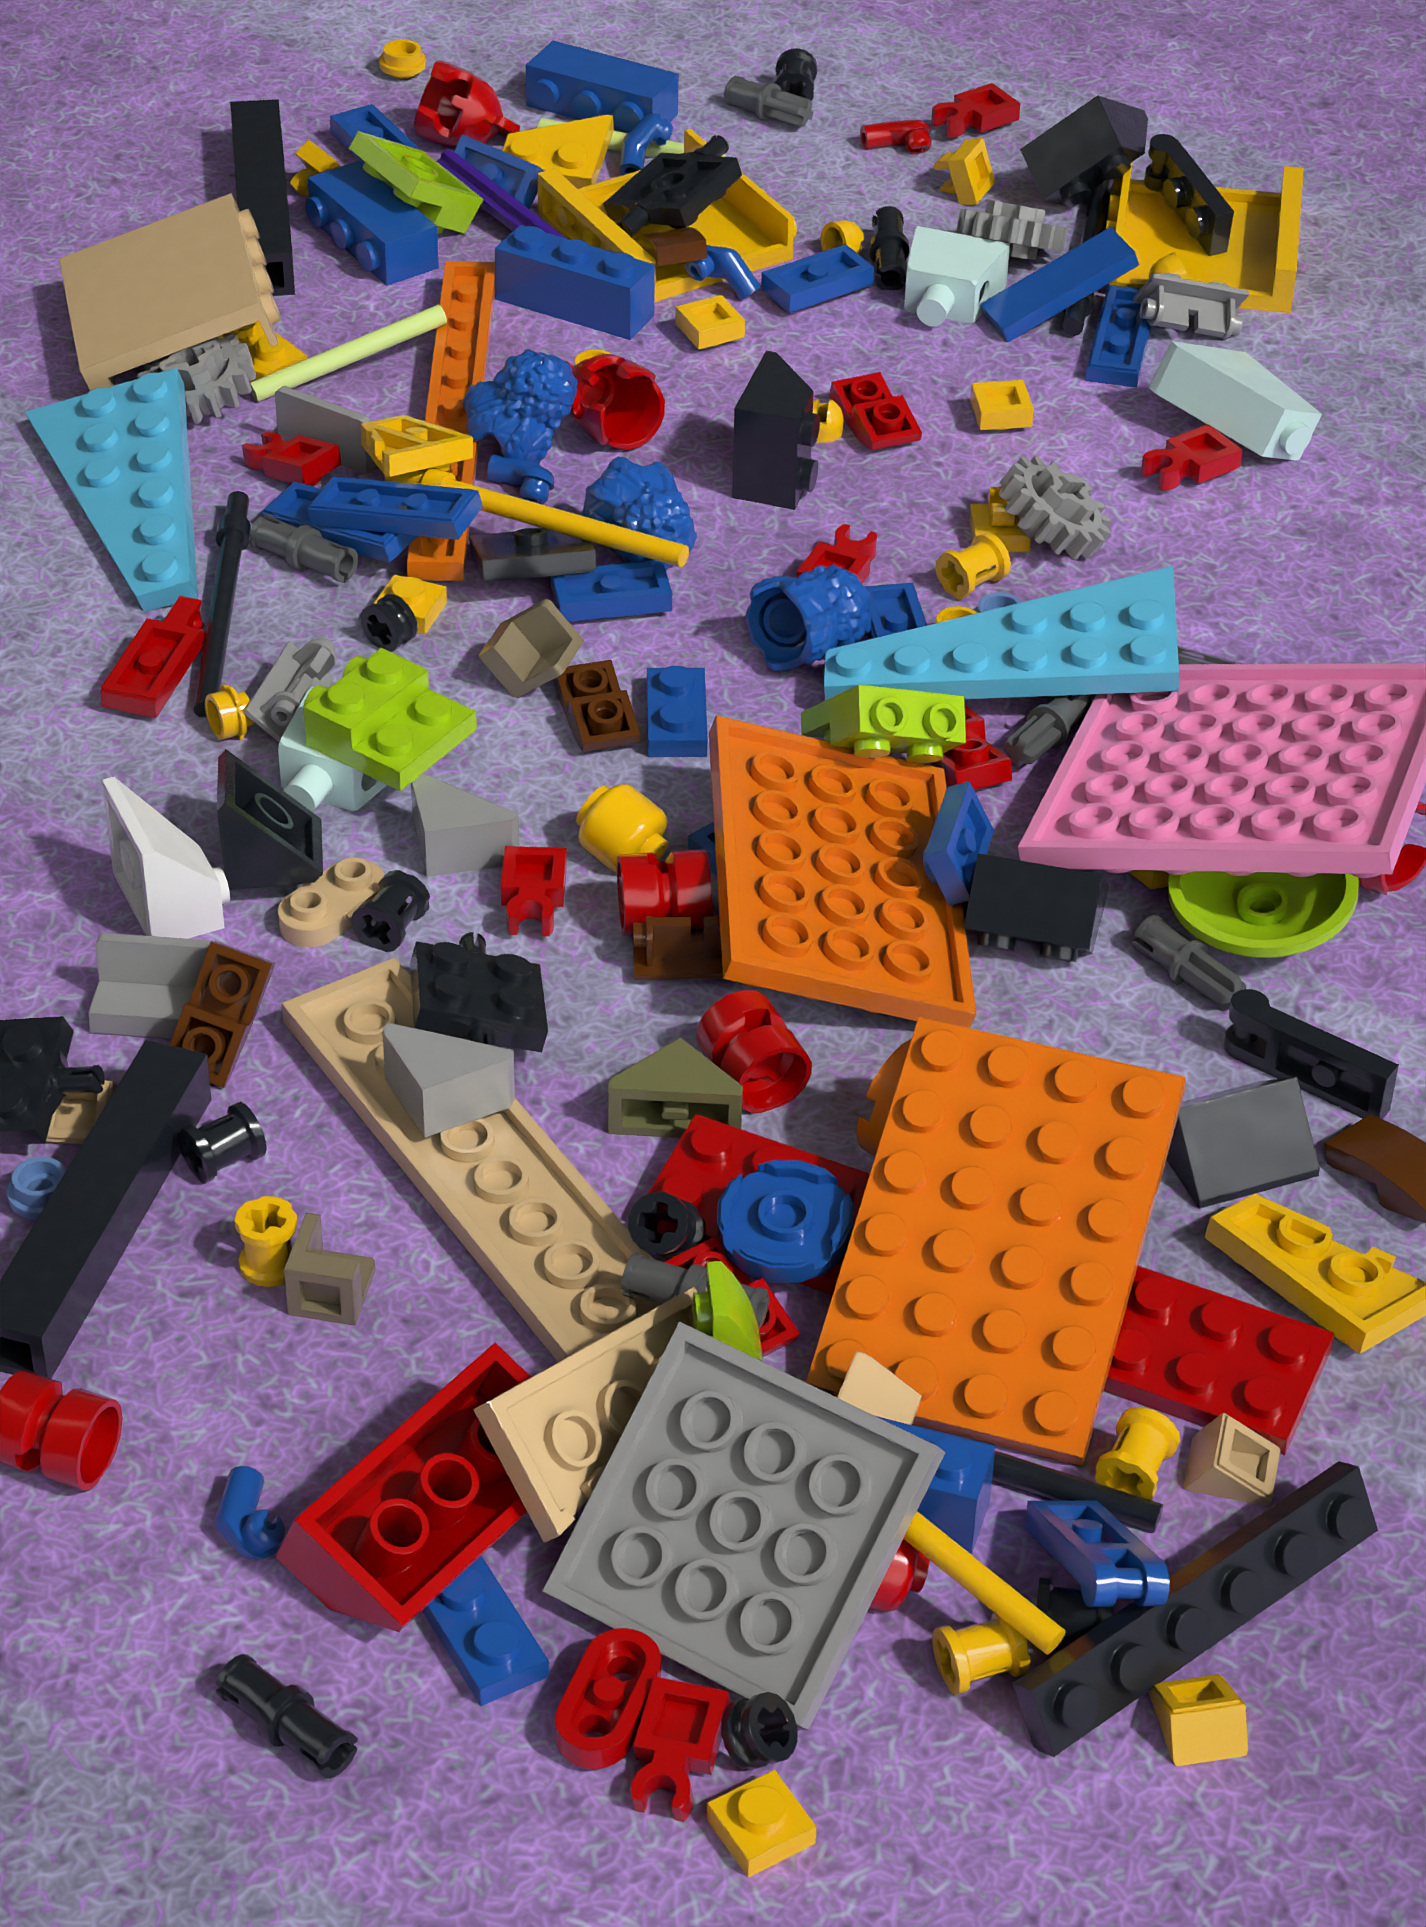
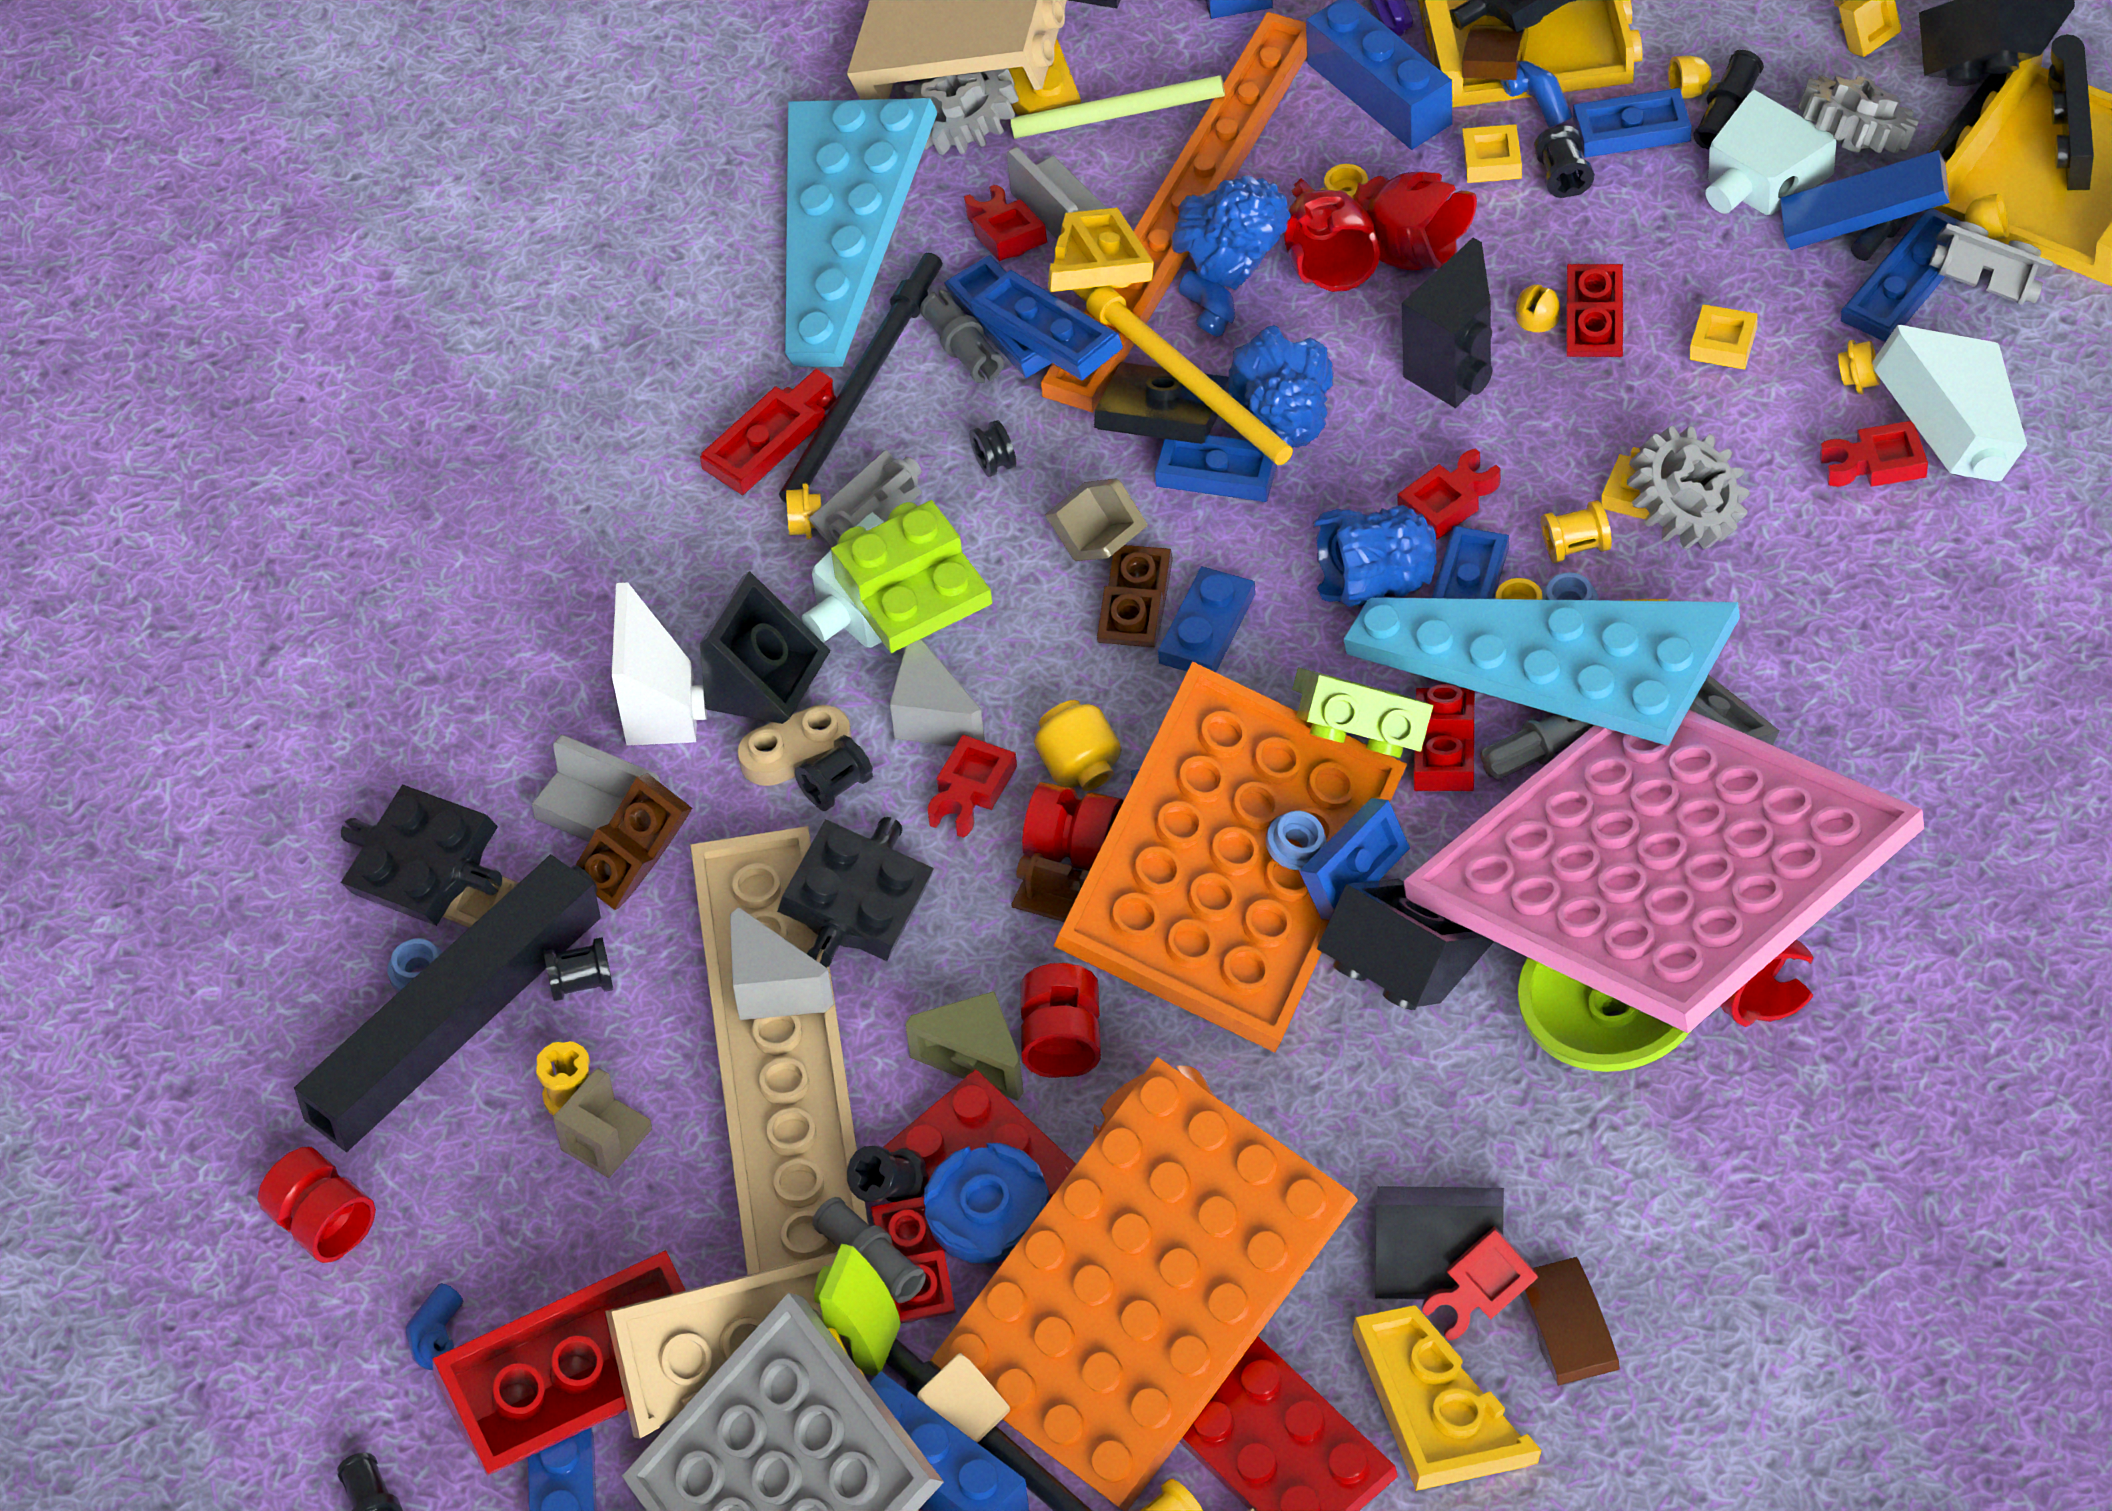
camera: 30 degrees right, 10 degrees up
(422, 597) = (1032, 426): yellow plate -> none
(686, 368) = (1415, 219): none -> red helmet
(781, 308) = (1566, 157): none -> black bush
(897, 838) = (1299, 827): none -> medium blue plate
(1131, 400) = (1857, 365): none -> yellow plate
(1187, 961) = (1512, 1043): dark grey axle -> none
(1311, 1149) = (1487, 1278): none -> plate
(1319, 1060) = (1554, 1181): black plate -> none

